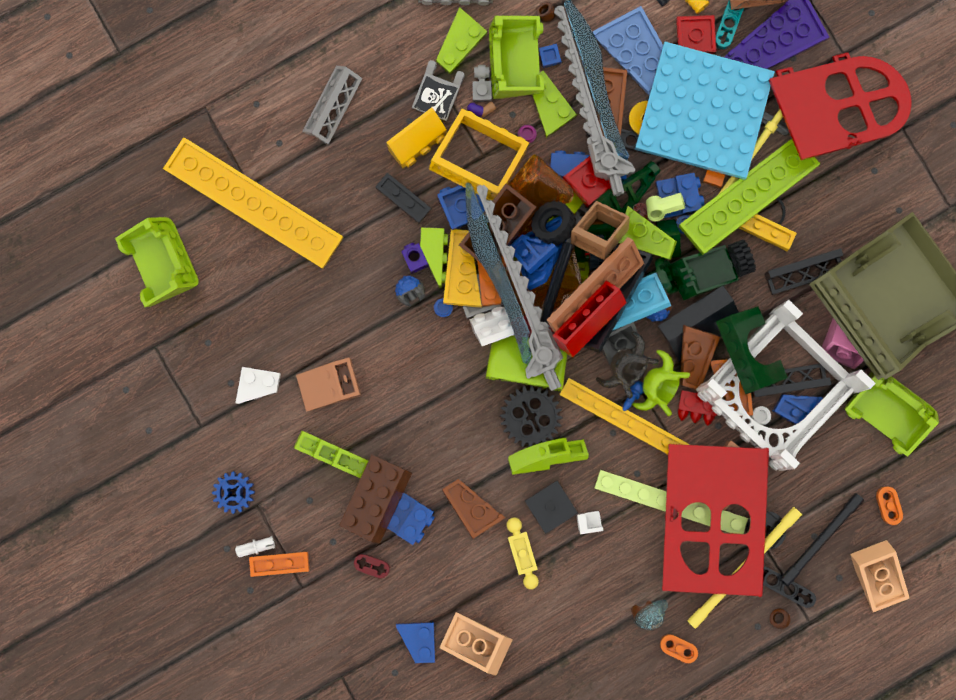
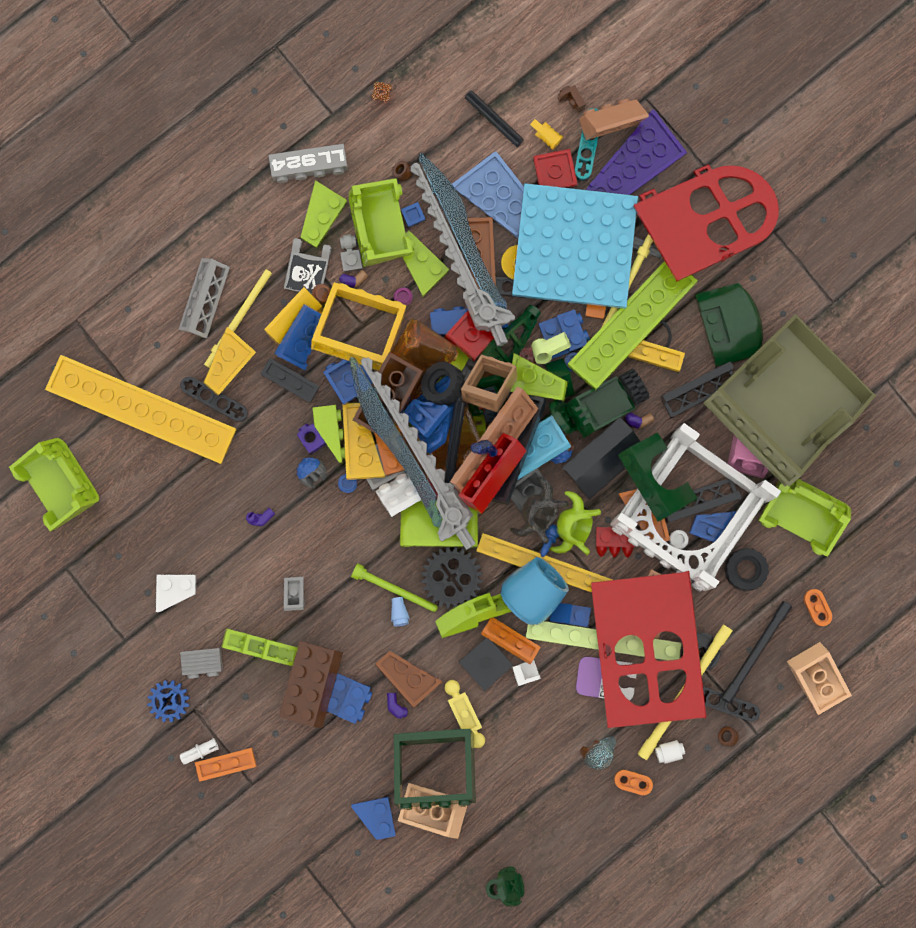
camera: 15 degrees left, 0 degrees up
(272, 459) = (201, 661): none -> light grey brick
(326, 204) = (212, 402): none -> black beam
(328, 384) = (246, 578): nougat slope -> none
(337, 157) = (243, 310): none -> light yellow bar
(345, 169) = (228, 361): none -> yellow wing
(352, 329) = (259, 519): none -> dark purple arm
(370, 570) = (316, 755): dark red beam -> none
(373, 407) = (294, 593): none -> light grey slope
(417, 159) = (297, 341): none -> blue wing
(441, 397) = (360, 573): none -> lime piece
(447, 117) = (321, 293): none -> dark orange plate
(456, 539) = (394, 708): none -> dark purple arm
(473, 443) = (399, 614): none -> light blue cone
(492, 572) = (431, 737): none -> dark green window
(579, 488) = (510, 640): none -> orange plate
(586, 290) = (484, 446): none -> clear blue arm
(611, 443) = (534, 591): none -> dark azure piece
(642, 472) = (571, 615): none -> blue slope
(652, 539) = (590, 679): none -> medium lavender piece
(697, 354) = (605, 490): dark orange wing -> none
(719, 624) = (670, 752): none -> white brick
(740, 294) = (638, 422): none -> arm
(832, 443) = (759, 562): none -> black tyre
(845, 211) = (730, 323): none -> dark green slope

